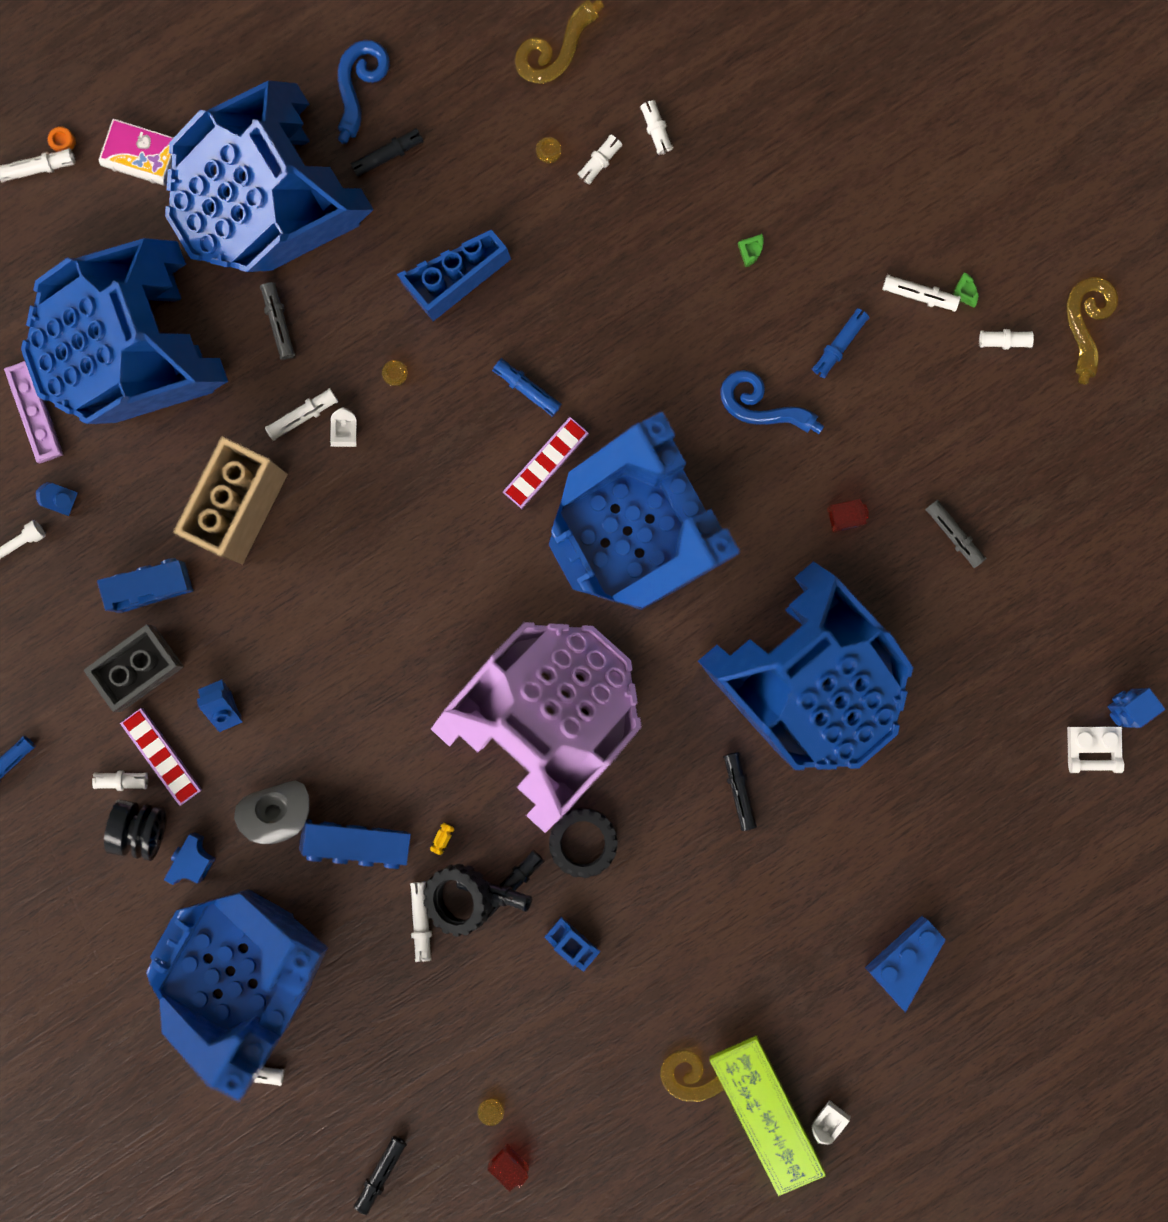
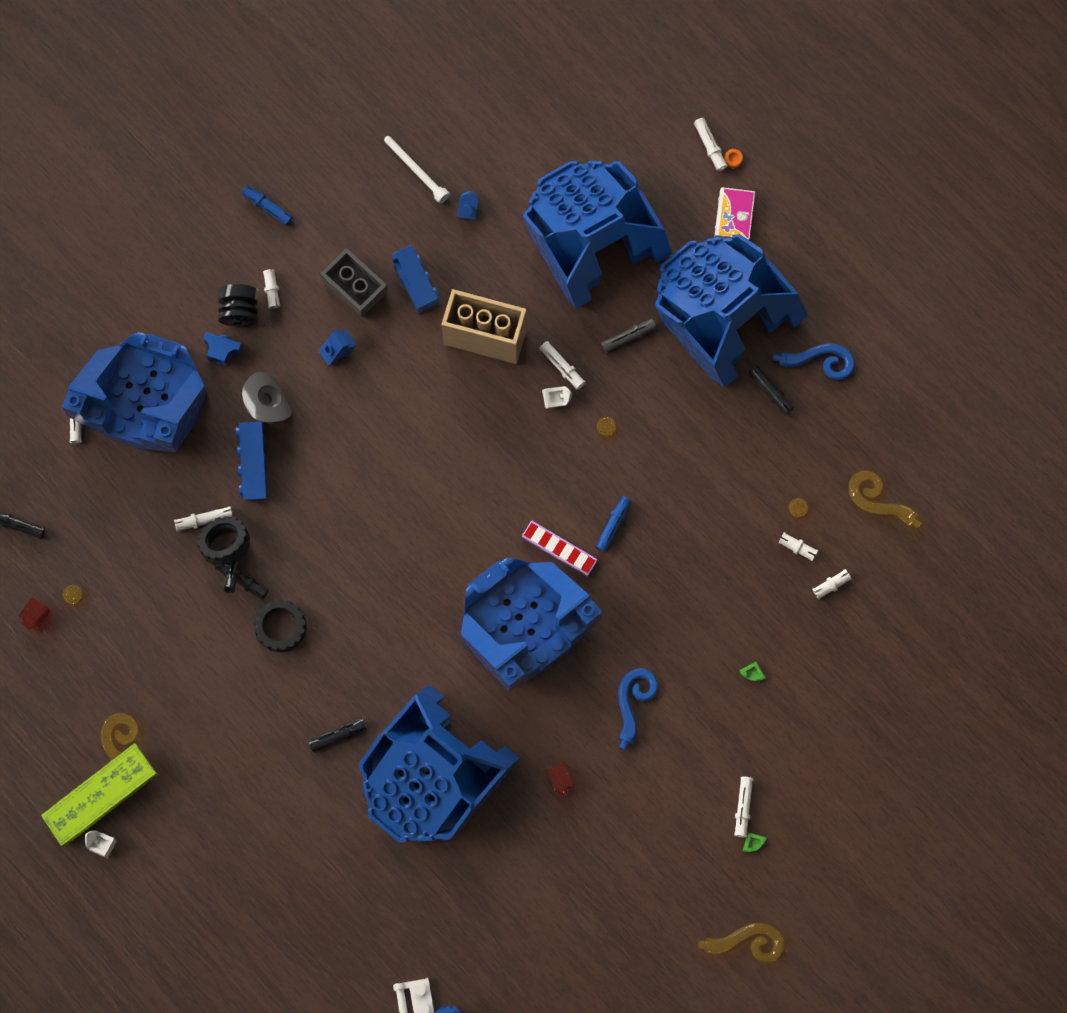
camera: 80 degrees right, 10 degrees down
(33, 414) = (527, 178): lavender tile -> none
(161, 756) = (293, 314): tile -> none
(442, 838) = (266, 523): yellow piece -> none
(455, 273) = (687, 454): blue wedge -> none
(559, 749) = (345, 593): lavender piece -> none
(571, 944) = (203, 630): blue brick -> none
(834, 351) = (693, 752): blue pin -> none
(907, 961) = (226, 878): blue wedge -> none
(956, 534) = (555, 871): dark grey pin -> none
(1006, 339) = (720, 878): white pin -> none

